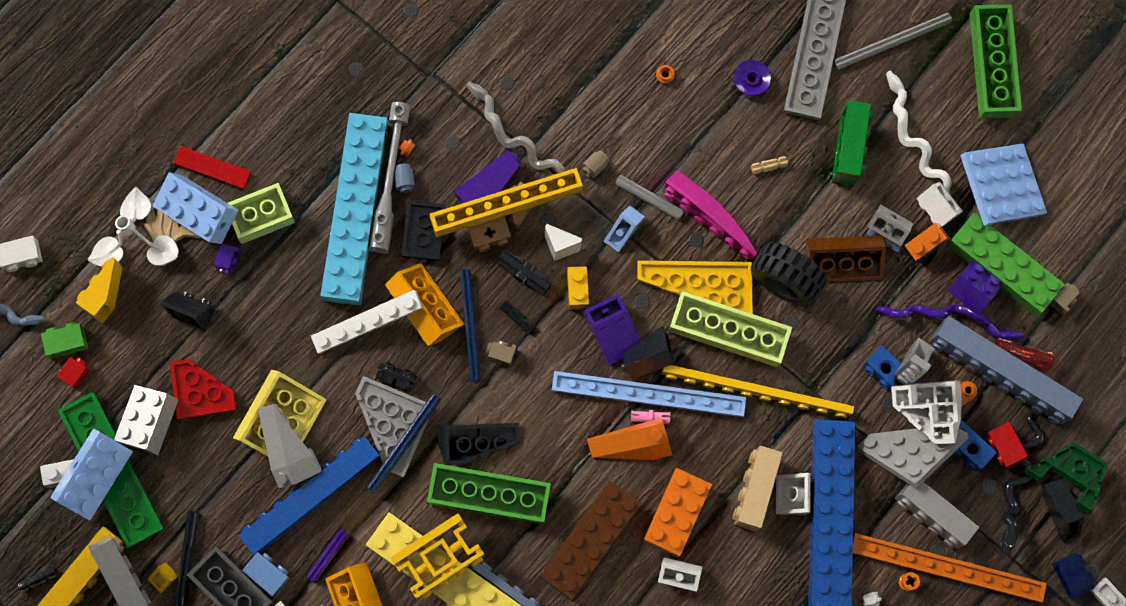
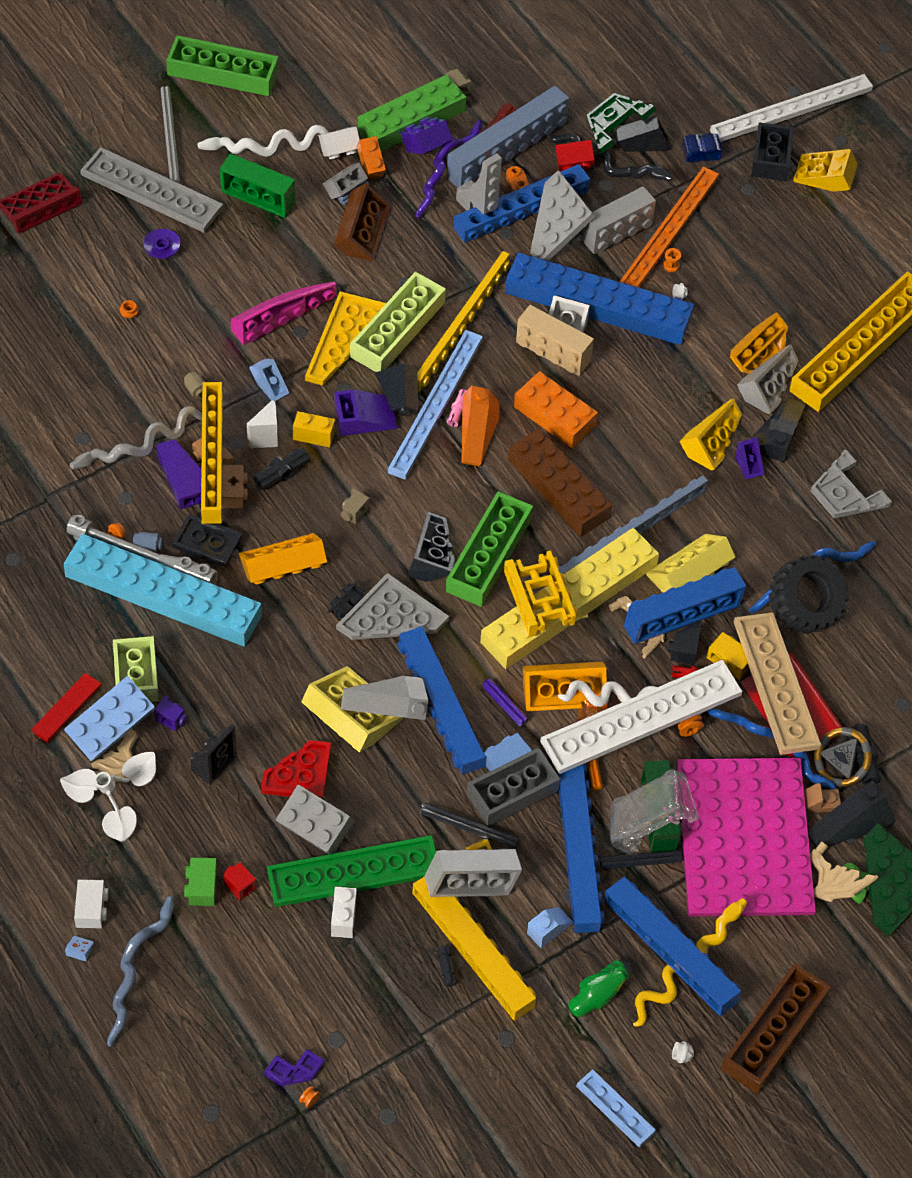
camera: 70 degrees left, 20 degrees down
(91, 474) = (358, 873): light blue brick -> none
(102, 292) = (166, 828): yellow slope -> none
(367, 321) = (284, 604): white plate -> none
(403, 443) = (417, 605): dark blue axle -> none
(470, 327) = (316, 527): dark blue axle -> none
(516, 316) = (321, 488): black axle -> none
(649, 197) = (245, 354): light grey axle -> none
(680, 574) = (613, 420): white brick -> none
(769, 165) = (251, 256): tan axle -> none
(789, 274) = (366, 256): black tyre -> none
(931, 408) = (527, 187): white brick -> none
(1003, 184) = (339, 91): light blue plate -> none

